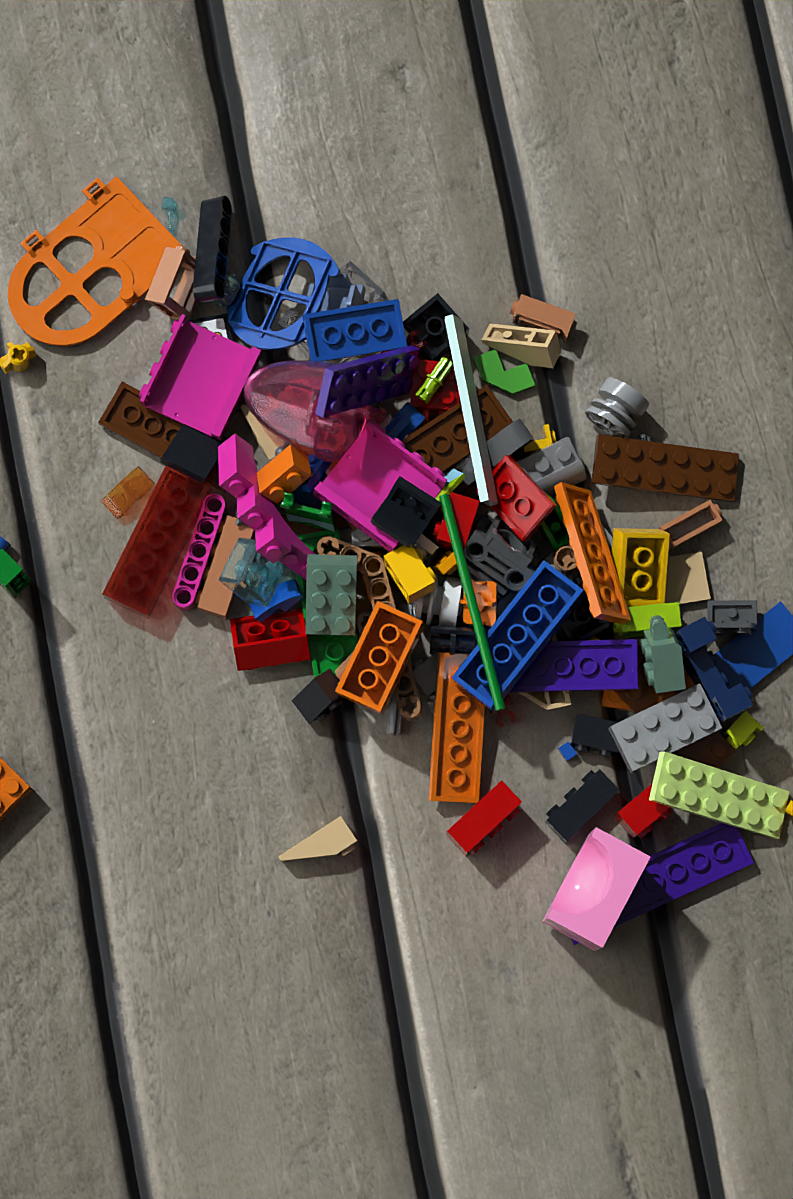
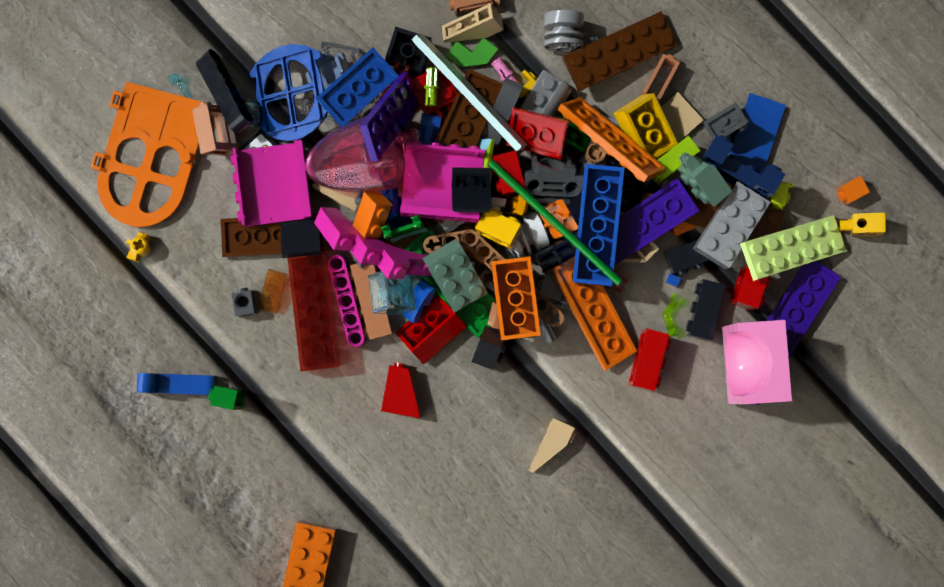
camera: 35 degrees left, 5 degrees up
(89, 496) = (250, 309): none -> dark grey brick
(193, 685) = (399, 392): none -> red slope
(525, 405) = (503, 70): none -> bright pink pin
(535, 786) = (666, 316): none -> clear neon green arm

